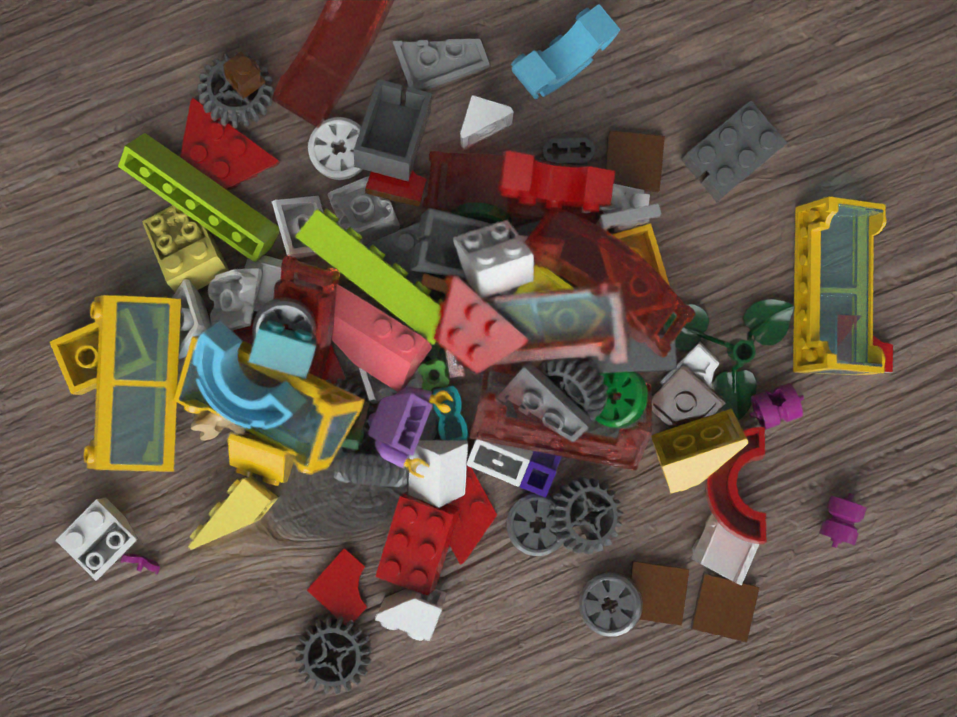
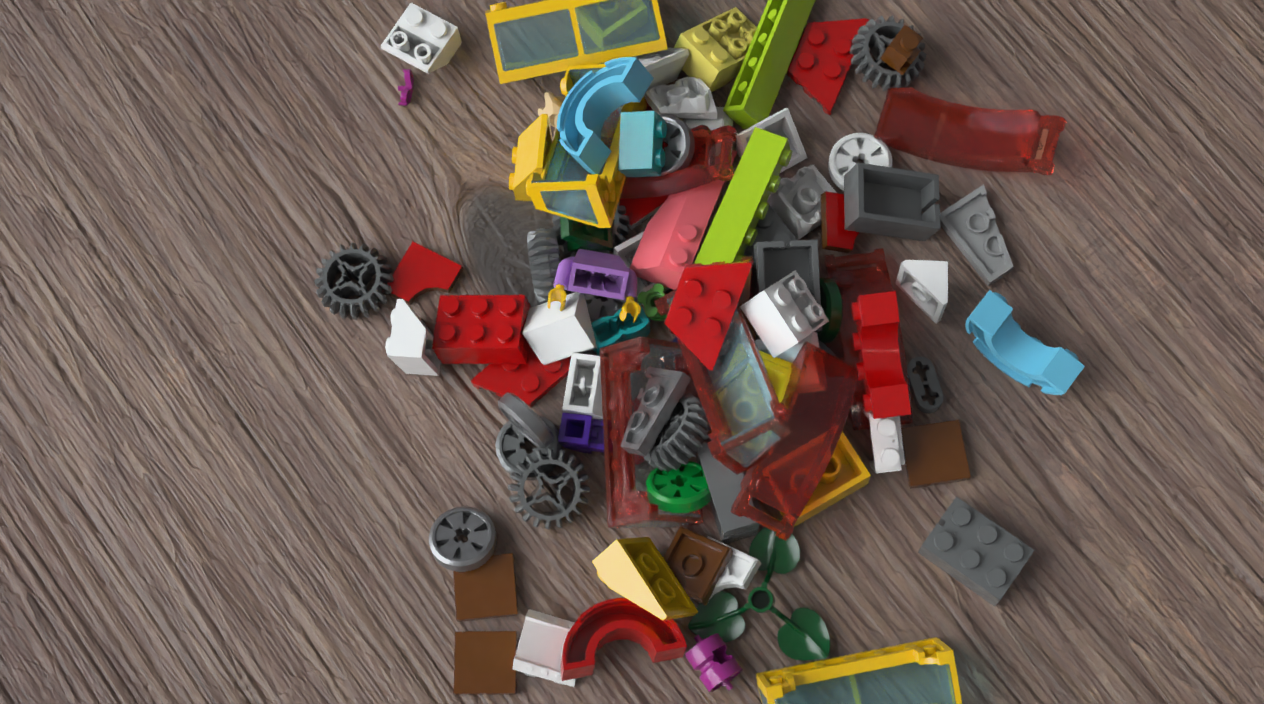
camera: 85 degrees right, 15 degrees down
(246, 504) = (480, 157): light yellow slope -> none
(523, 523) = (525, 420): none -> flat silver wheel
(618, 221) = (859, 432): light grey wing -> none

